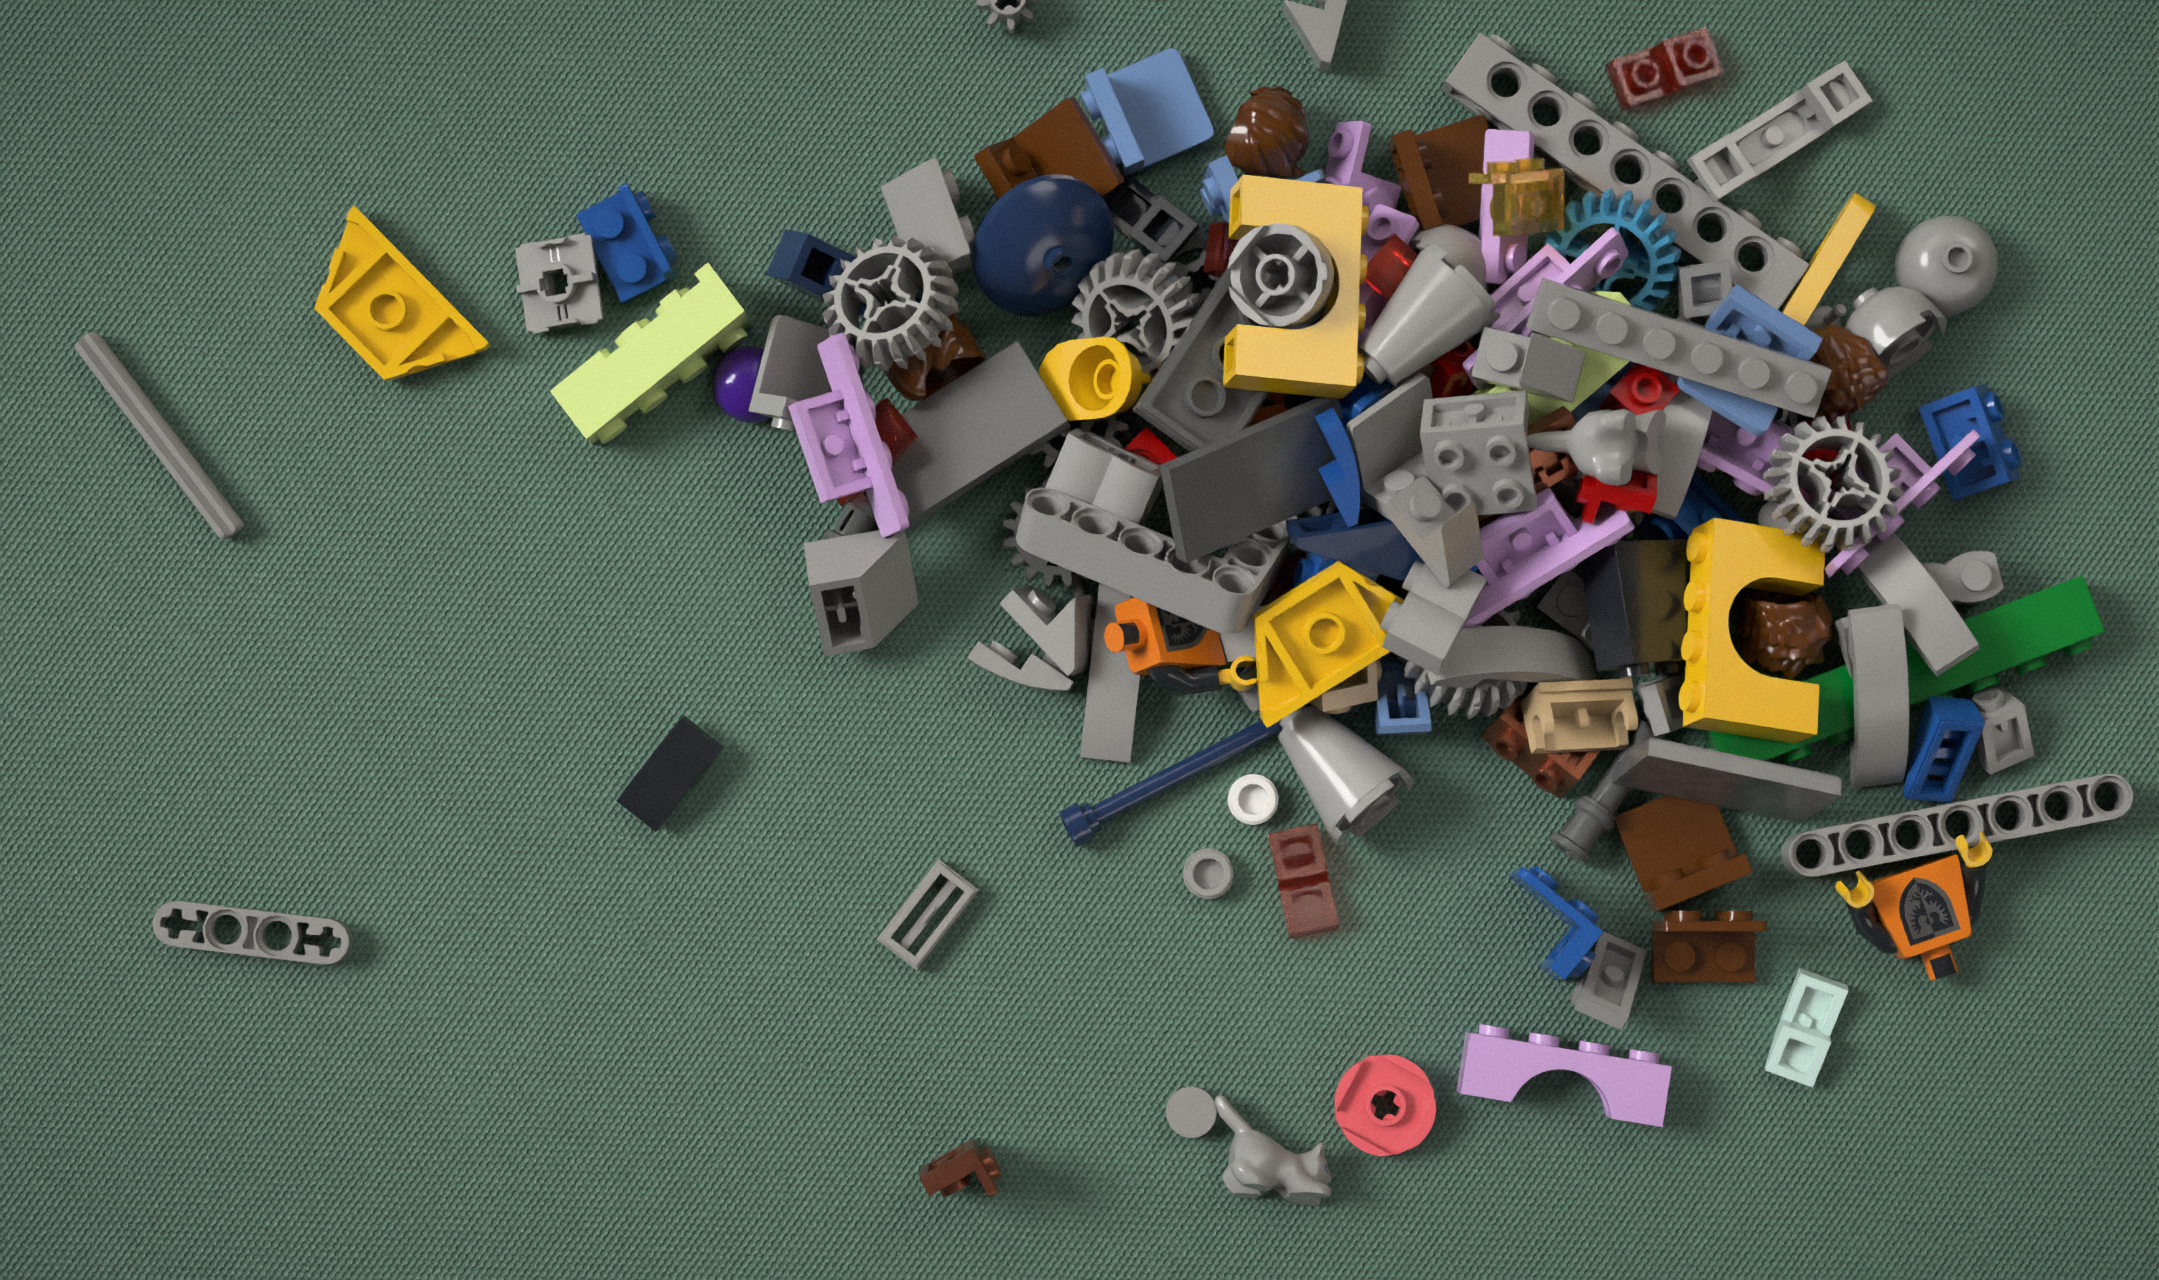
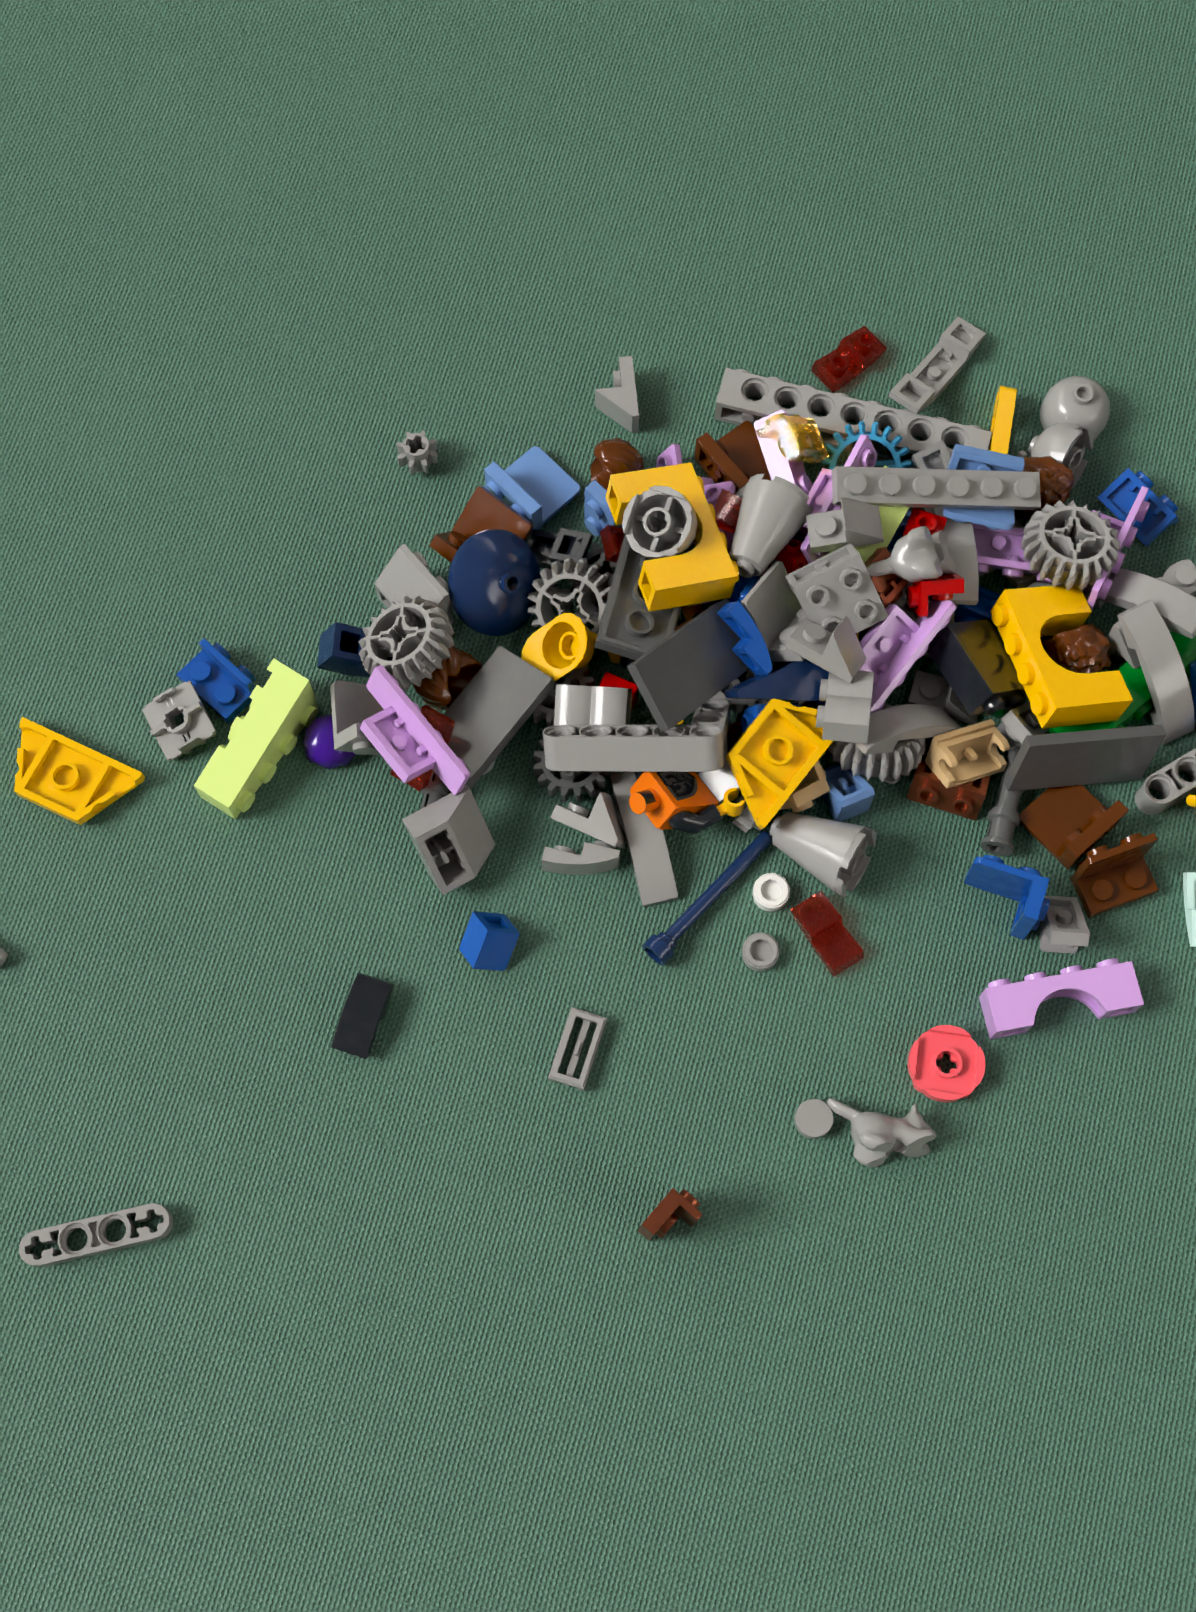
camera: 15 degrees left, 15 degrees down
(864, 735) = (489, 941): none -> blue panel

